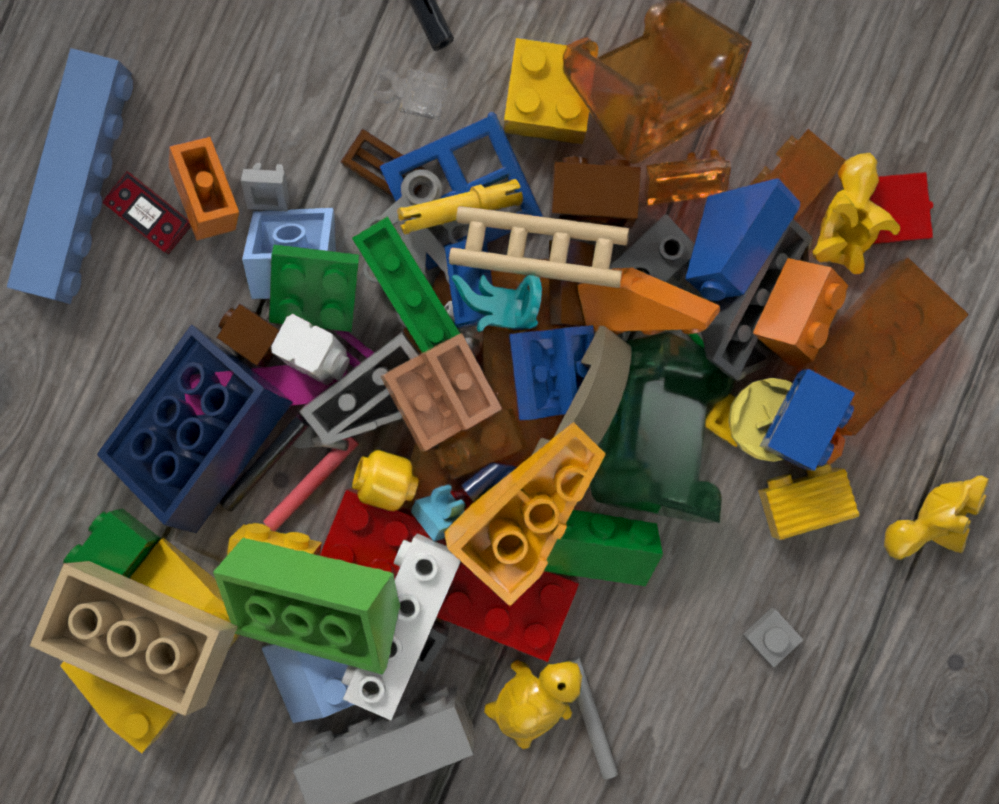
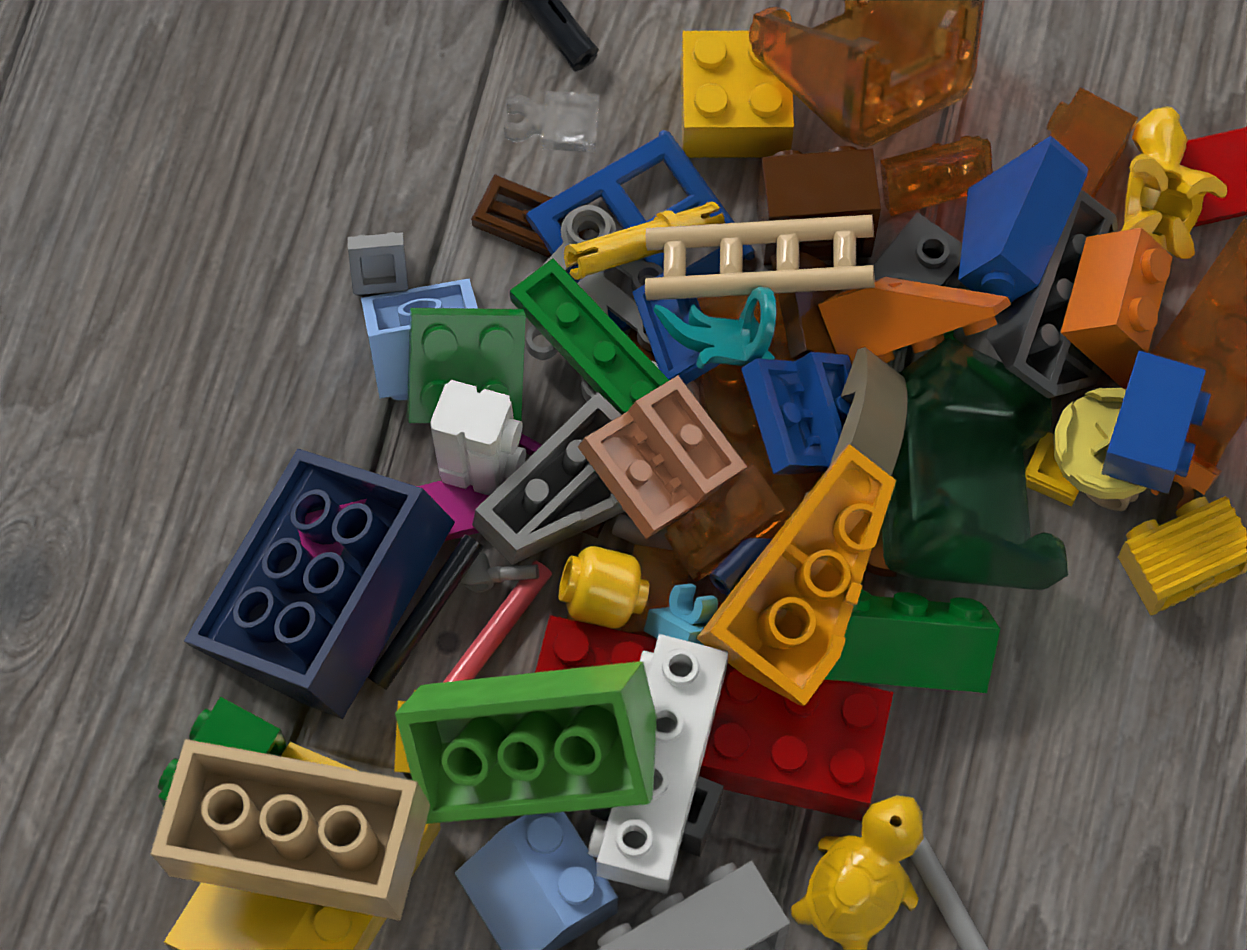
camera: 10 degrees left, 20 degrees down
(71, 177) = (111, 288): medium blue brick -> none
(147, 212) = (218, 318): tile -> none
(203, 188) = (296, 269): orange brick -> none
(248, 334) = (384, 443): reddish brown brick -> none
(773, 637) = (1181, 748): light grey plate -> none

